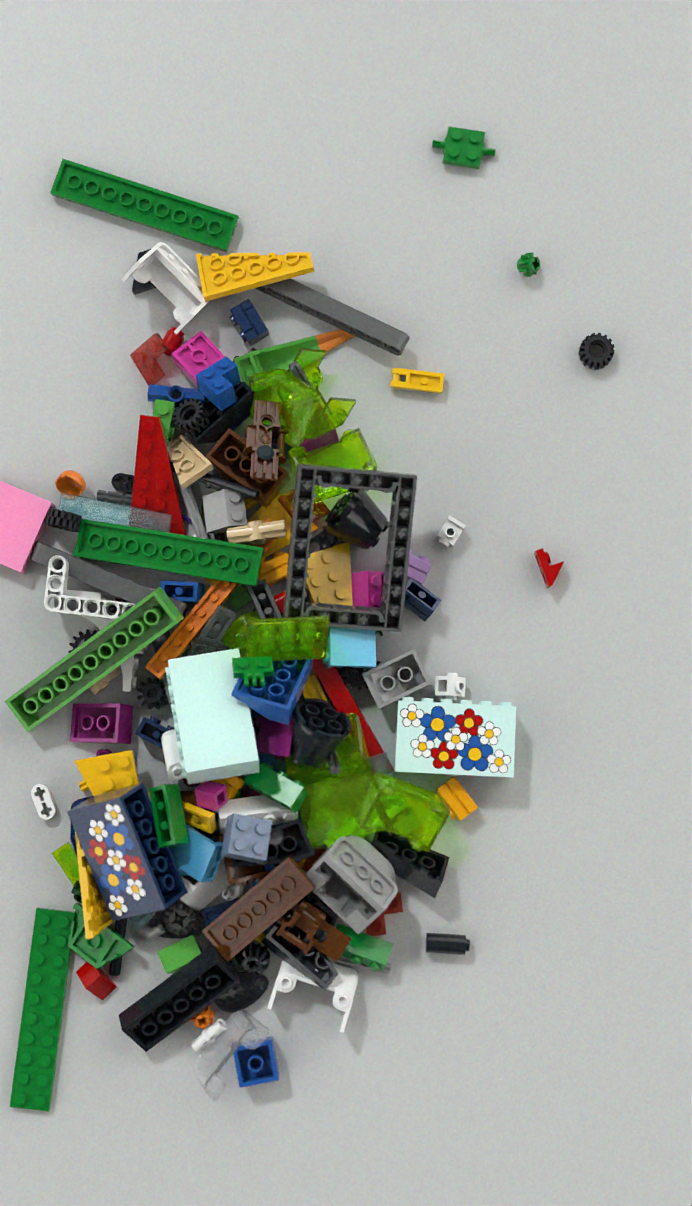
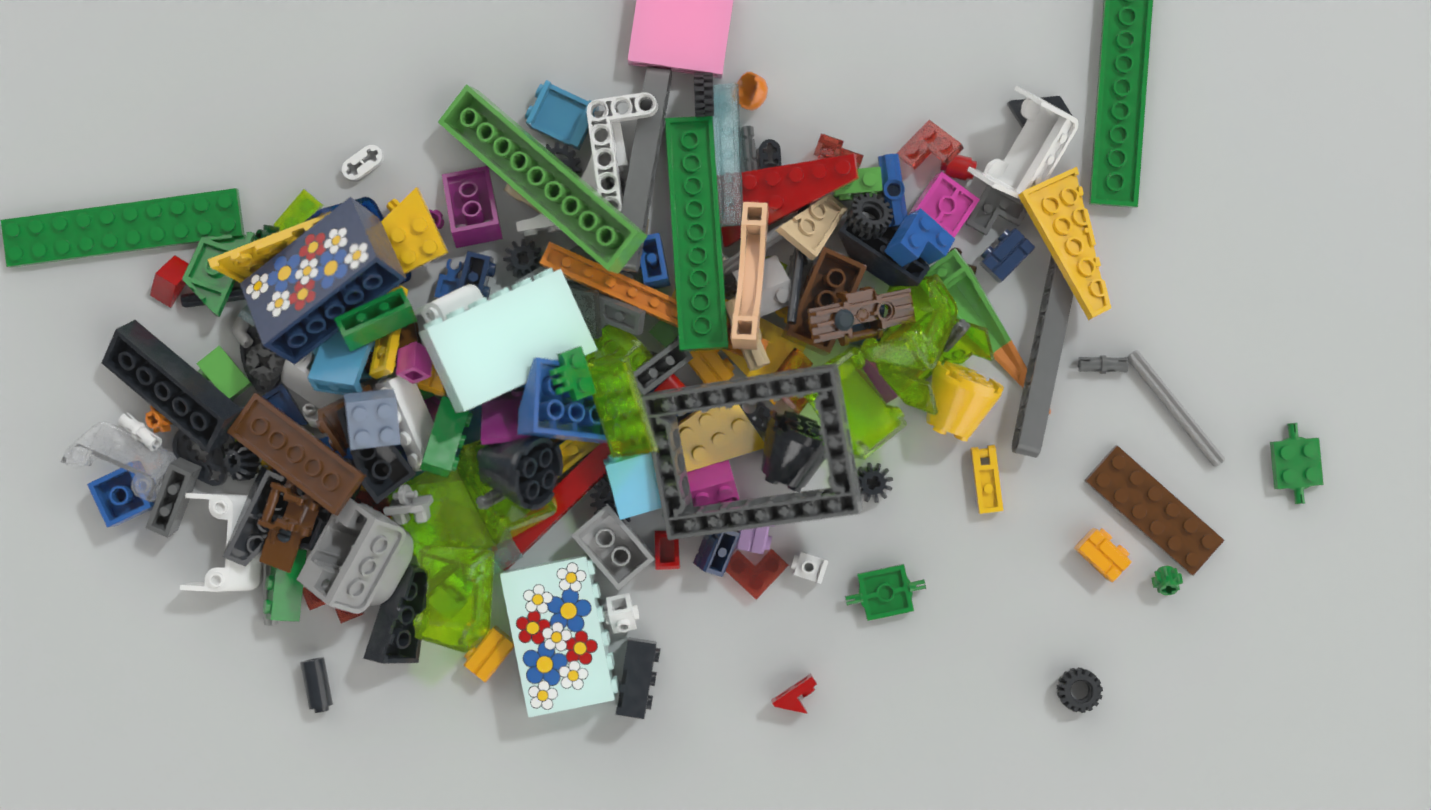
camera: 70 degrees right, 5 degrees up
(49, 636) = (559, 115): none -> dark azure panel
(129, 432) = (832, 147): none -> clear red plate
(156, 756) = (449, 282): none -> blue plate
(207, 321) = (994, 204): none -> dark grey plate
(212, 516) = (750, 278): none -> light nougat arch
(268, 1020) = (171, 499): none -> dark grey brick
(319, 829) = (407, 502): none -> light grey hips
(351, 272) = (1102, 364): none -> dark grey pin
(351, 380) = (961, 399): none -> yellow cone
(389, 466) = (875, 489): none -> black gear
(399, 226) = (1176, 408): none -> light grey axle
(410, 639) = (666, 552): none -> red slope
(448, 574) = (757, 577): none -> clear red plate
(472, 261) = (1154, 510): none -> reddish brown plate
(484, 479) = (885, 592): none -> green plate
(496, 307) = (1103, 554): none -> light orange brick
(504, 686) = (637, 678): none -> black wedge

